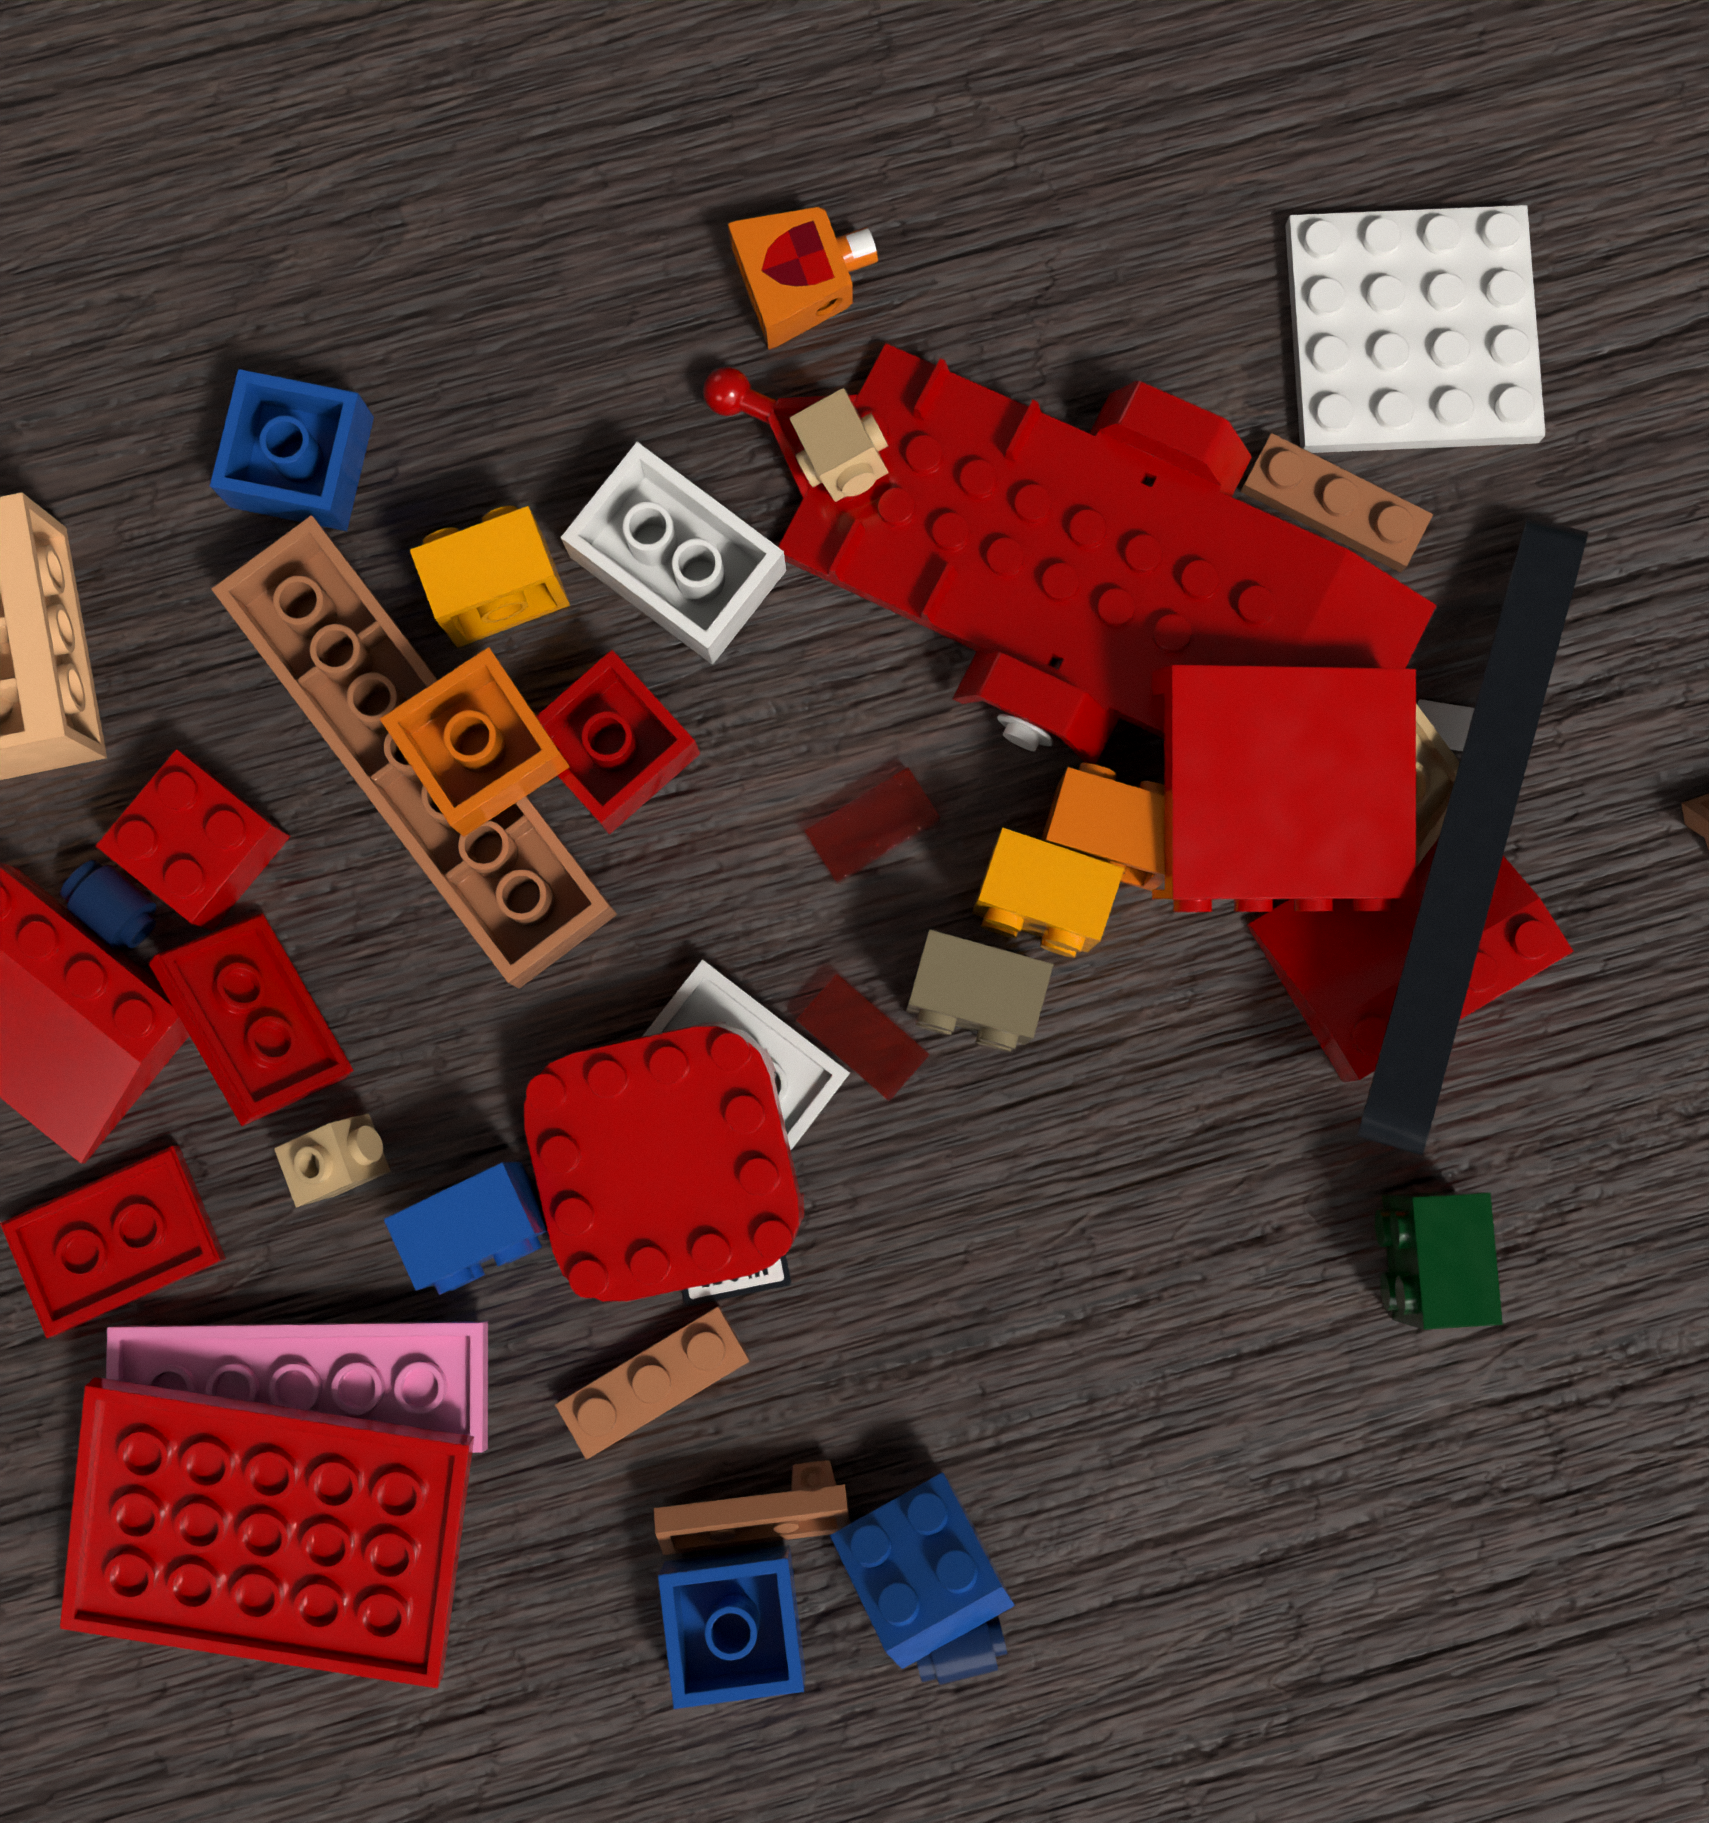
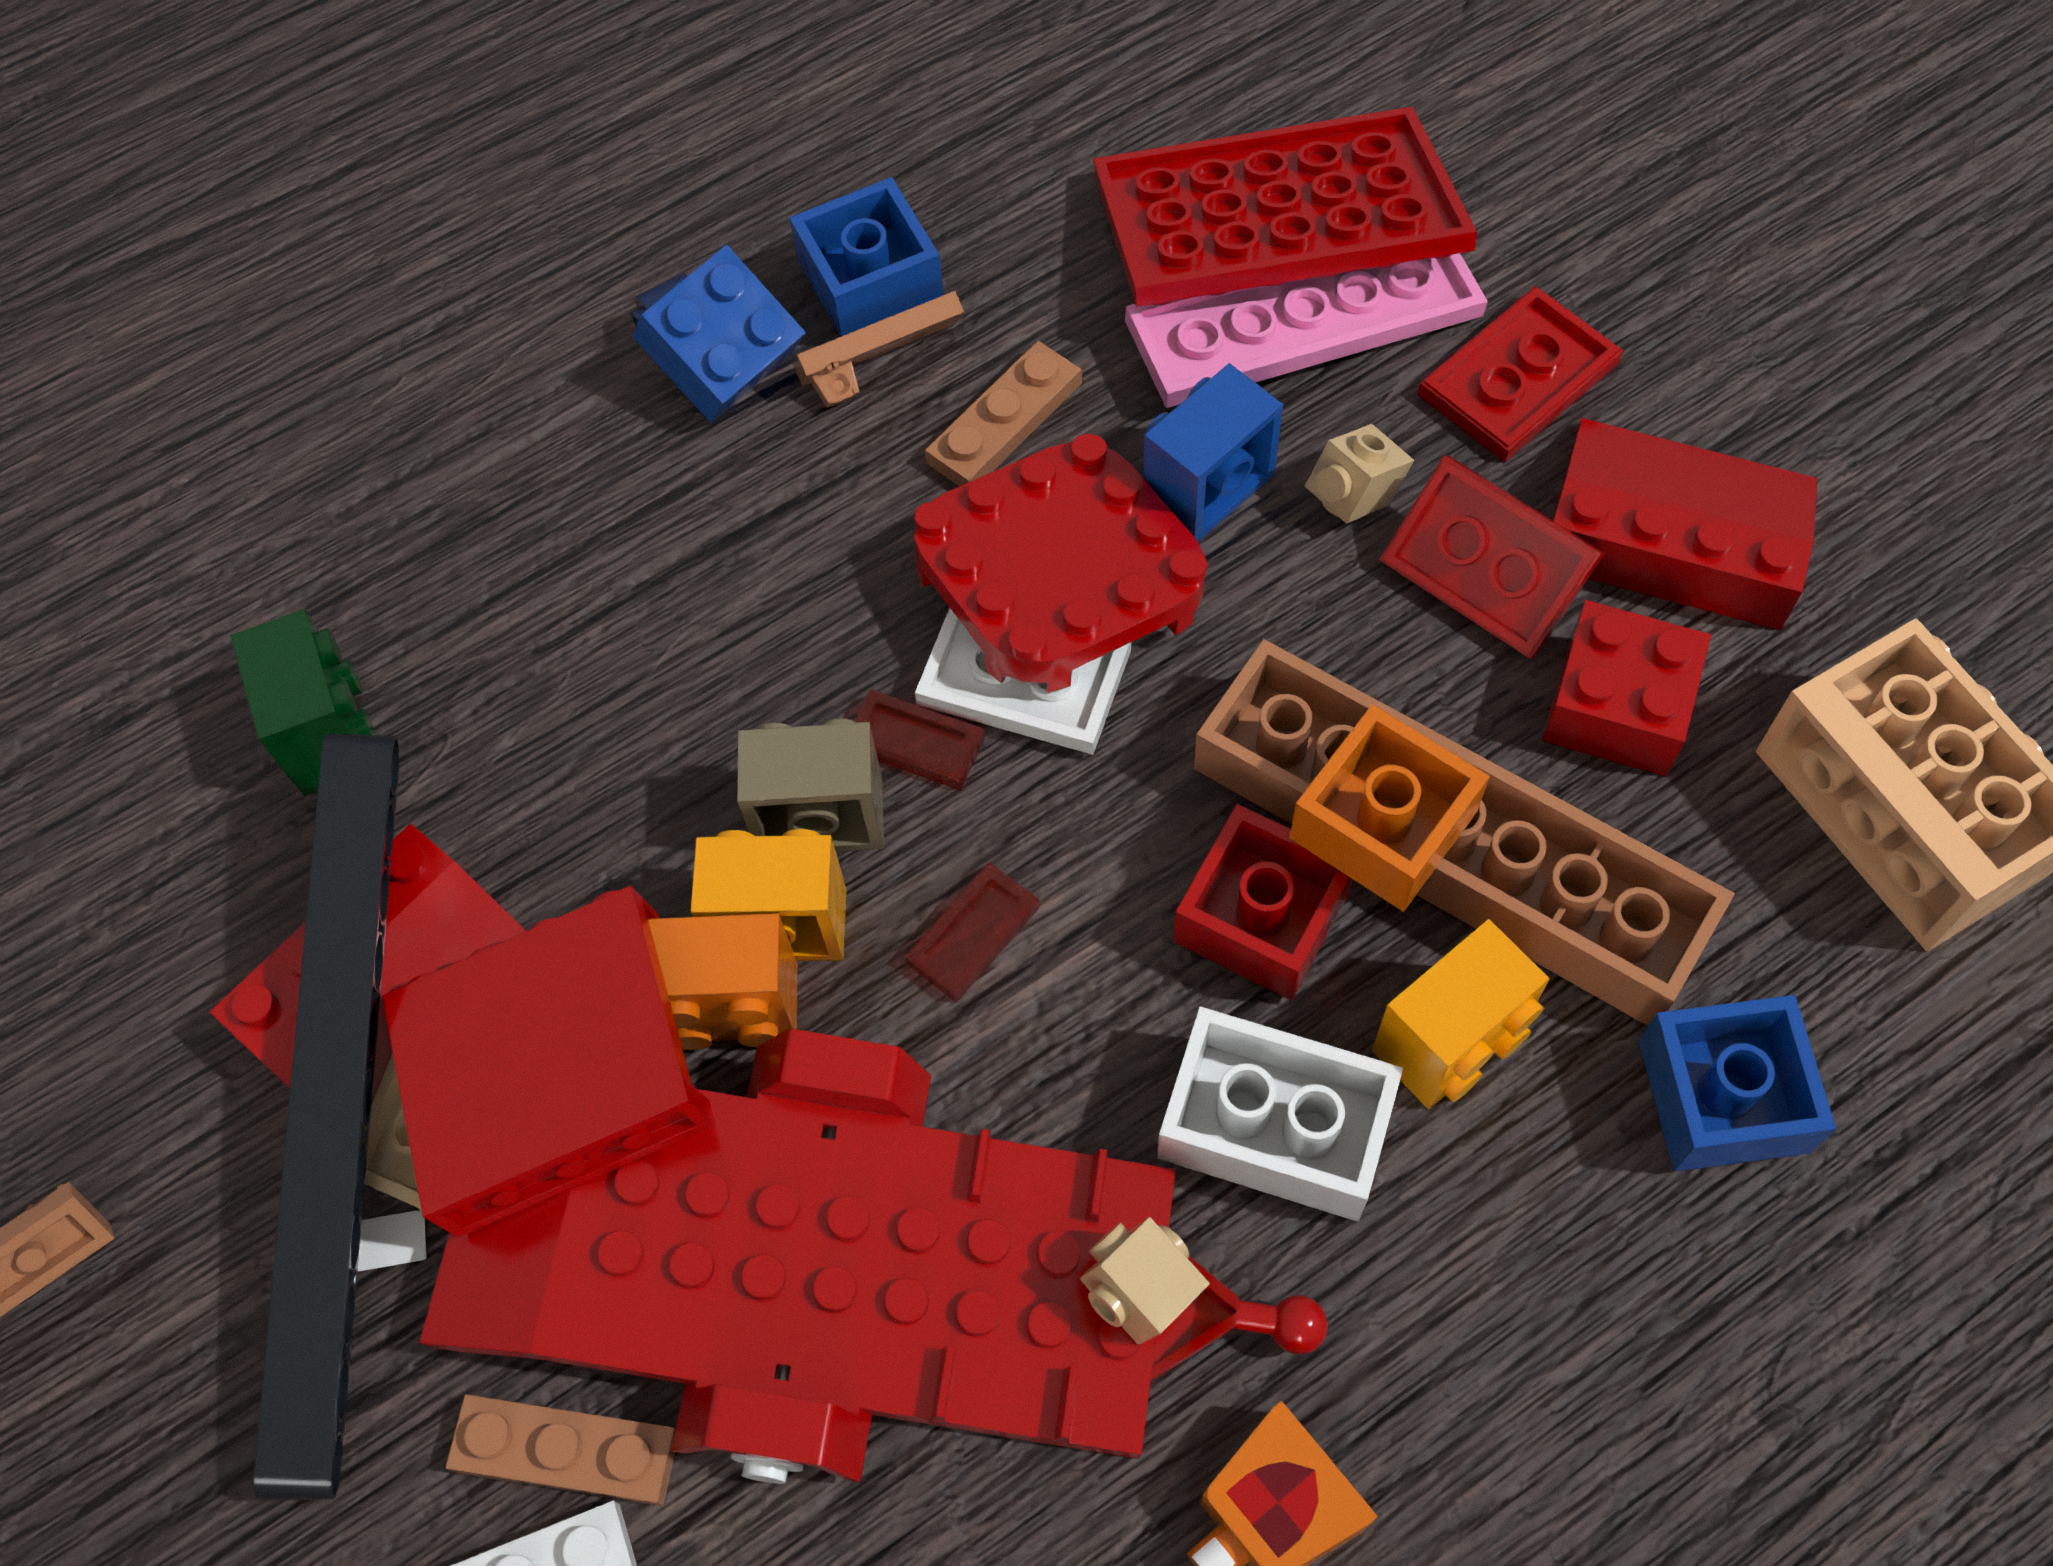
camera: 165 degrees right, 20 degrees down
(109, 905) = (1676, 604): dark blue brick -> none

